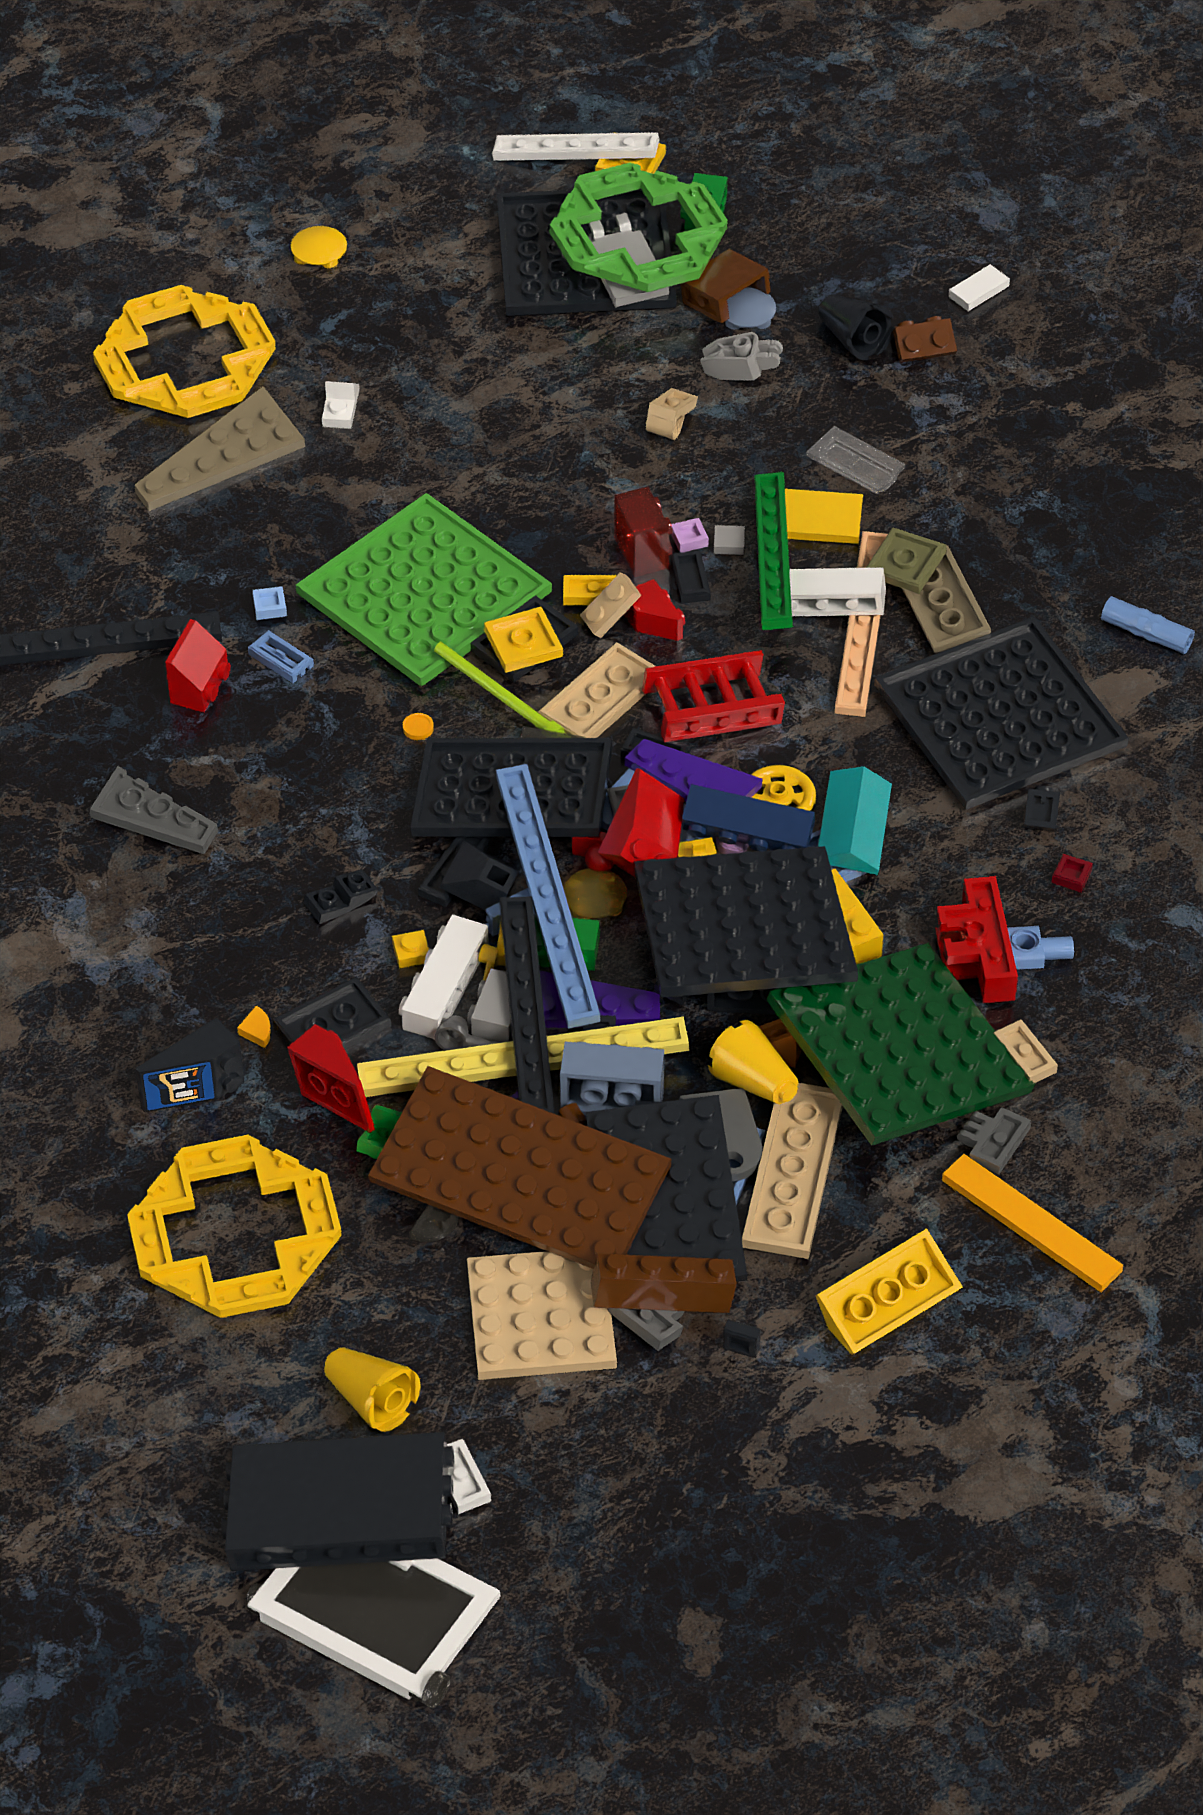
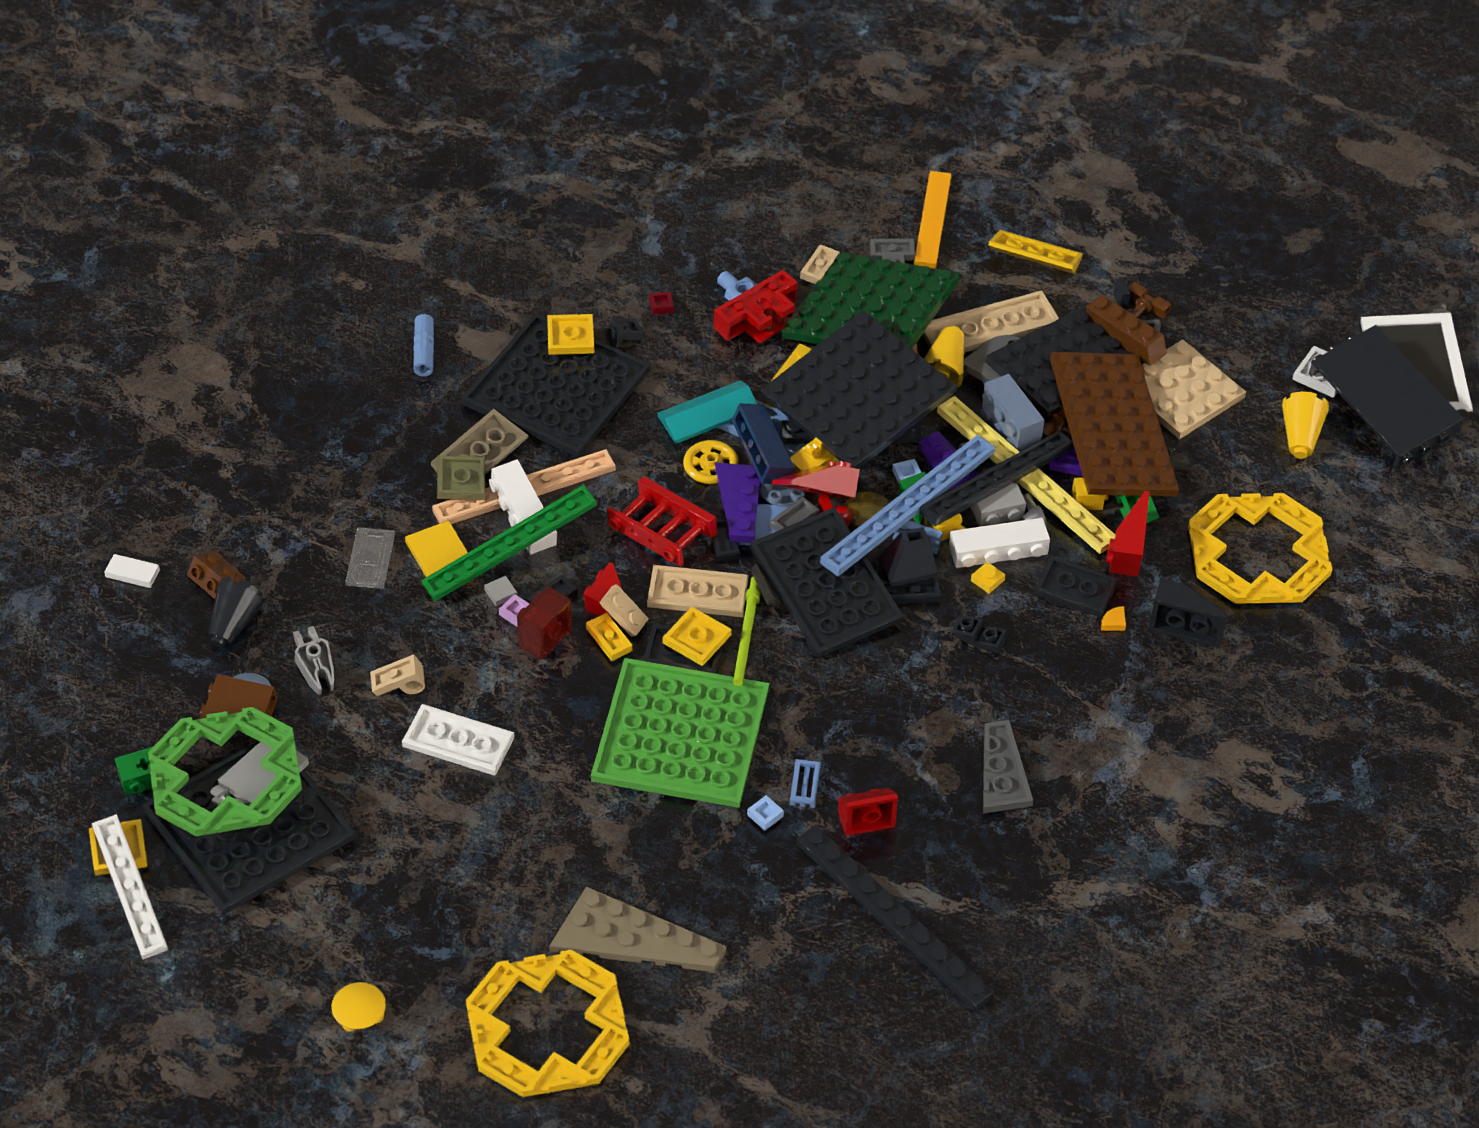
camera: 125 degrees left, 0 degrees up
(340, 404) = (526, 890): white slope -> none
(418, 726) = (803, 674): light orange piece -> none
(562, 431) = (458, 739): none -> white tile
(618, 954) = (905, 469): none -> light blue plate
(708, 1357) = (1146, 303): none -> reddish brown bar
(1059, 740) = (570, 334): none -> yellow plate

